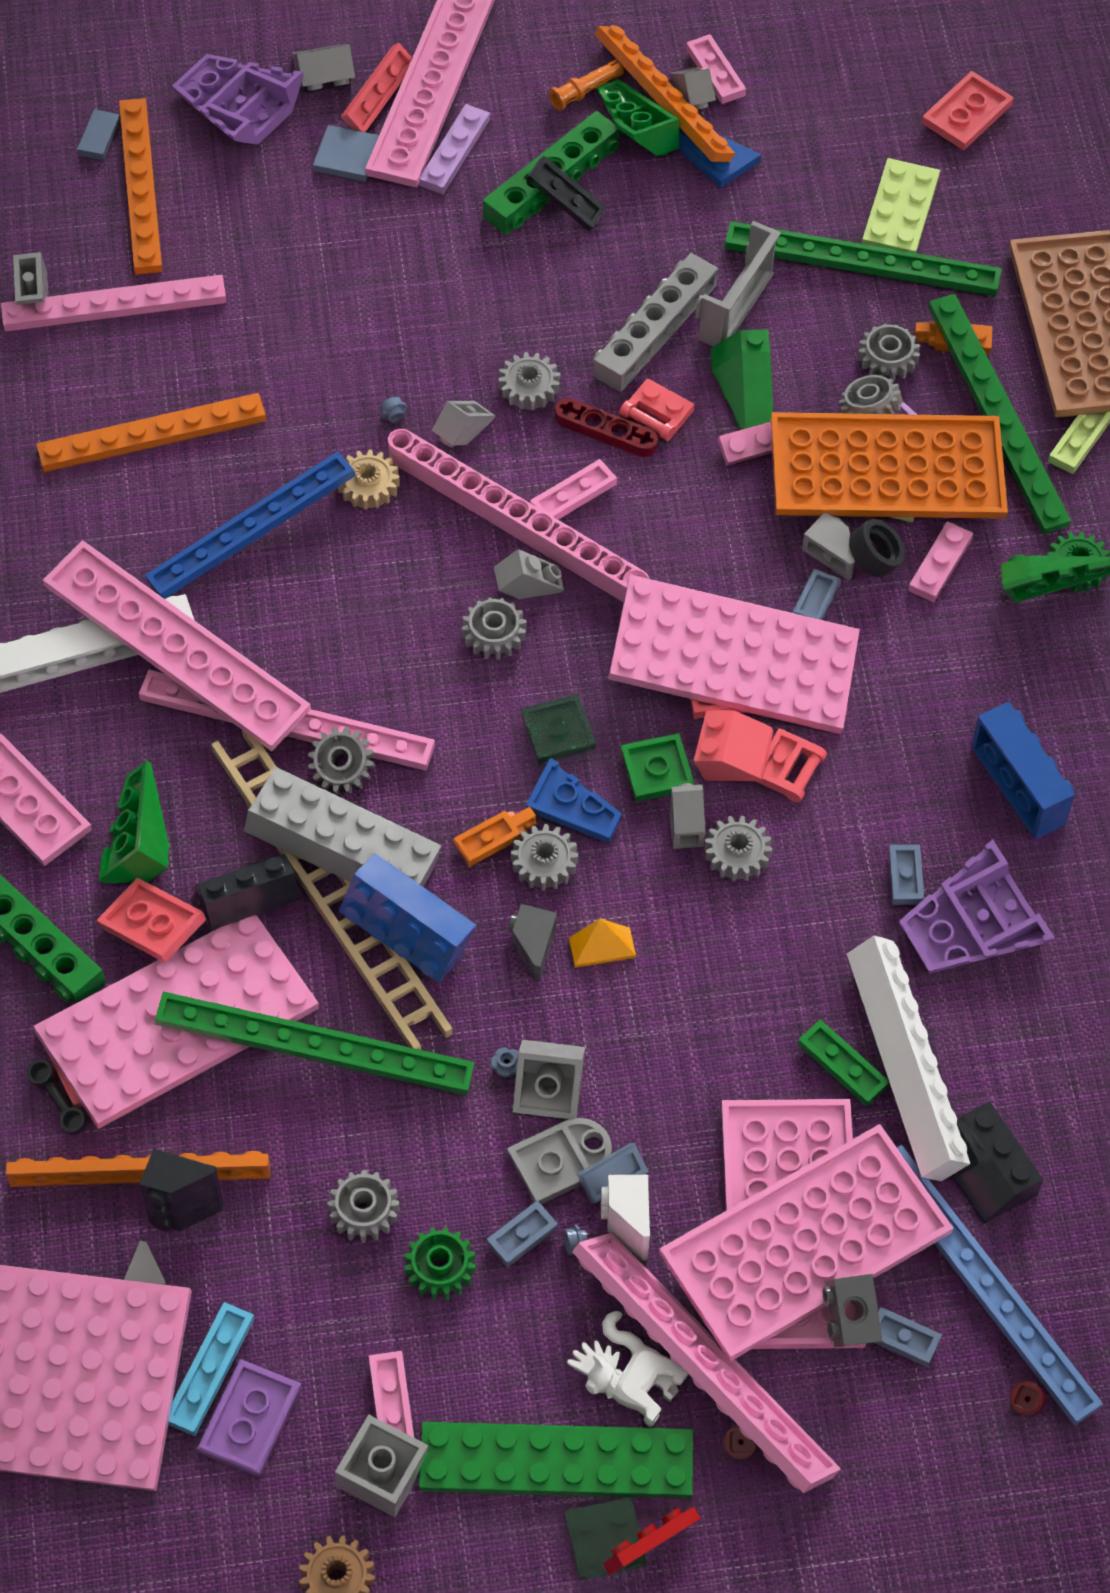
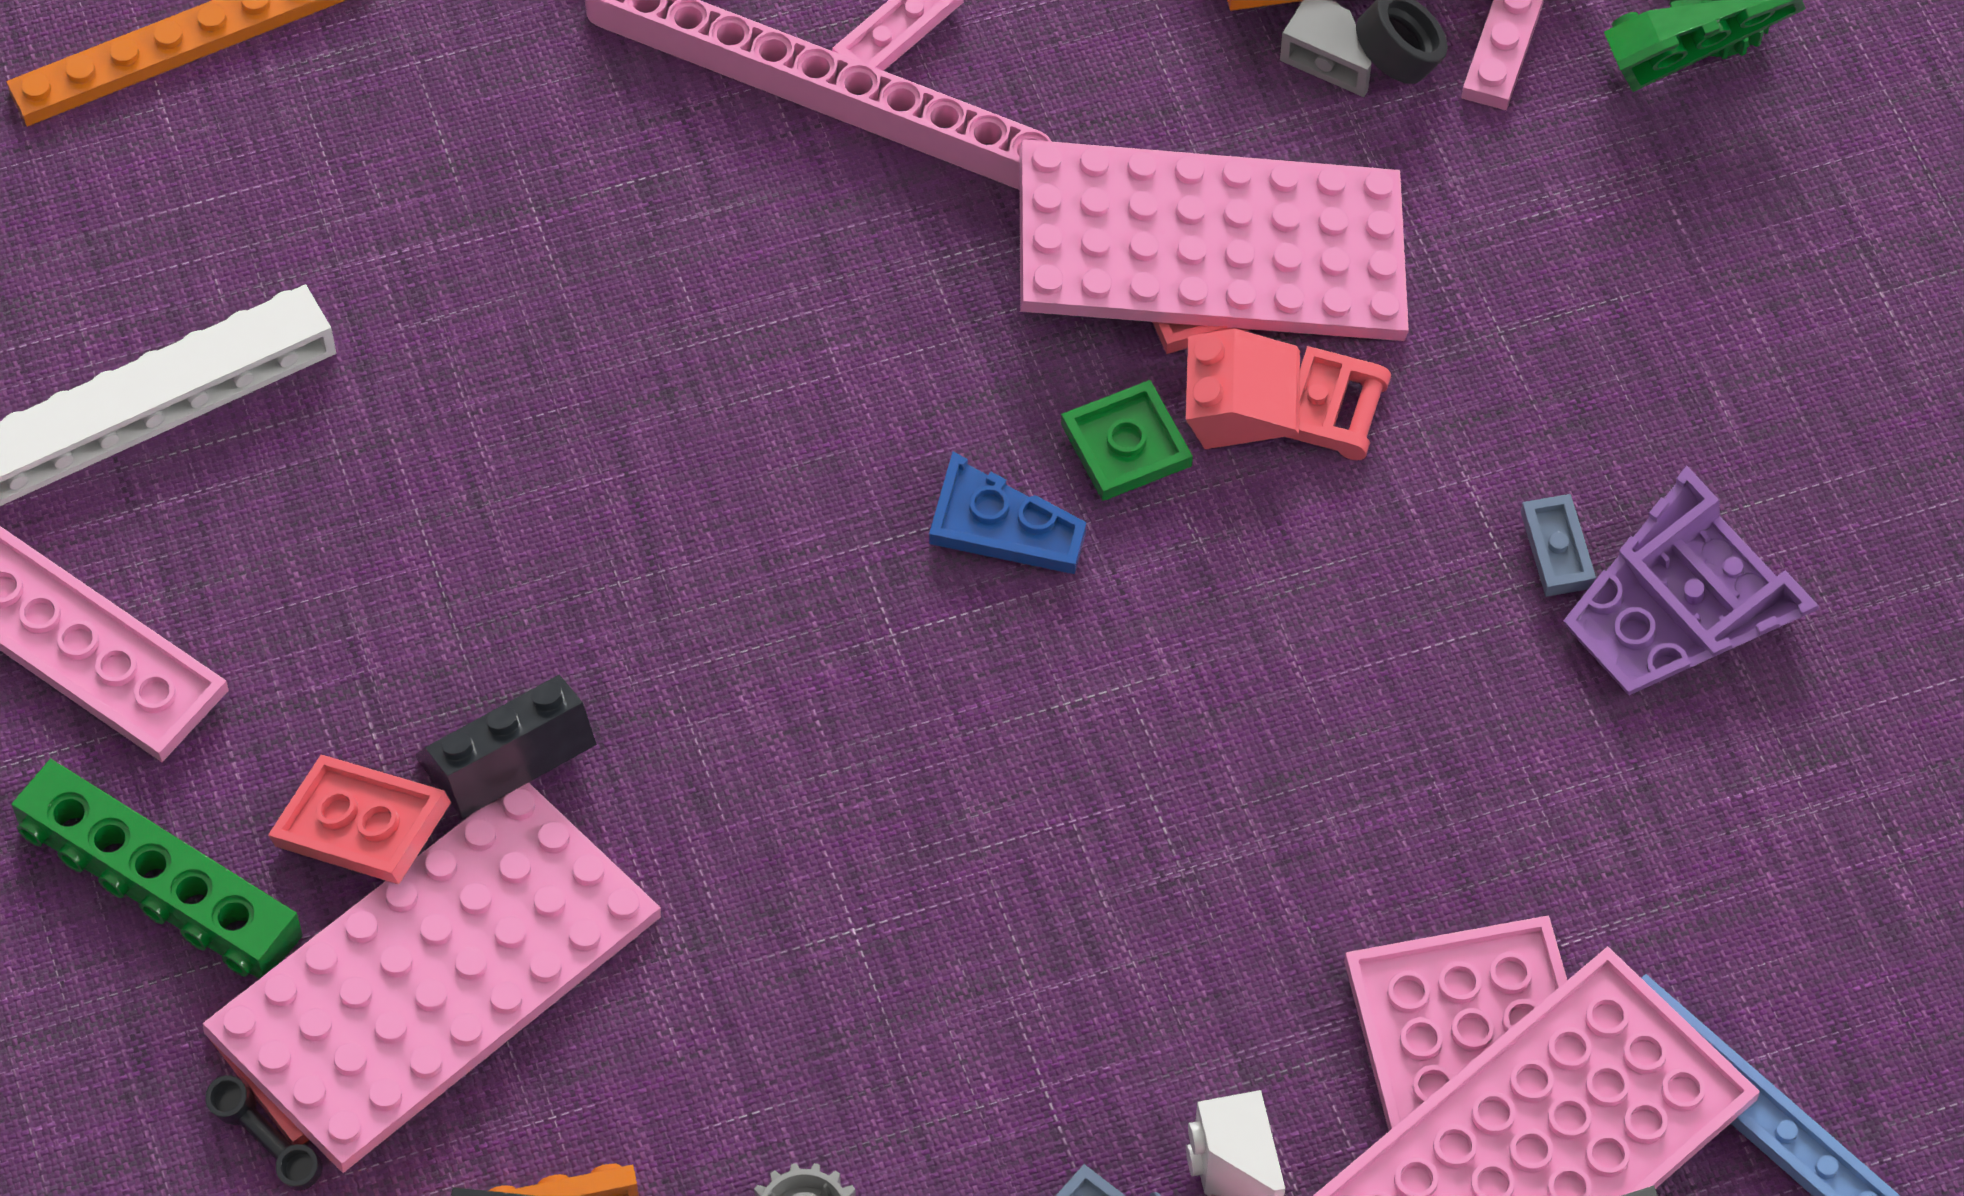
camera: 10 degrees left, 0 degrees up
(139, 834) = (308, 682): green wedge -> none
(177, 645) = (310, 368): bright pink plate -> none
(250, 525) = (386, 158): blue plate -> none
(314, 1043) = (669, 973): green plate -> none
(322, 905) = (634, 747): tan ladder -> none
(333, 830) = (645, 634): light grey brick -> none
(335, 745) = (610, 484): light grey gear -> none
(373, 480) = (562, 56): tan gear -> none
(385, 742) = (511, 460): bright pink plate -> none
(407, 917) = (779, 744): blue brick -> none
(493, 835) = (886, 591): orange hinge -> none
(494, 628) = (817, 260): light grey gear -> none
(502, 1069) = (985, 963): sand blue plate -> none
(527, 576) = (853, 169): light grey slope -> none
(532, 936) = (985, 742): dark grey slope -> none
(548, 872) = (977, 636): light grey gear -> none
(548, 1079) = (1060, 967): light grey slope -> none
(554, 1157) = (1103, 1092): light grey tile -> none
(558, 728) = (954, 404): clear green plate -> none
(601, 943) = (1096, 736): light orange slope -> none
(621, 1162) = (1176, 1105): sand blue tile -> none
(687, 816) = (1193, 509): light grey slope -> none
(734, 863) = (1284, 572): light grey gear -> none
(817, 595) = (1320, 126): sand blue tile -> none
(843, 1063) = (1524, 860): green plate -> none
(908, 1059) = (1628, 835): white brick -> none
(998, 1170) = (1787, 979): black slope -> none
(1022, 770) = (1708, 349): blue brick -> none

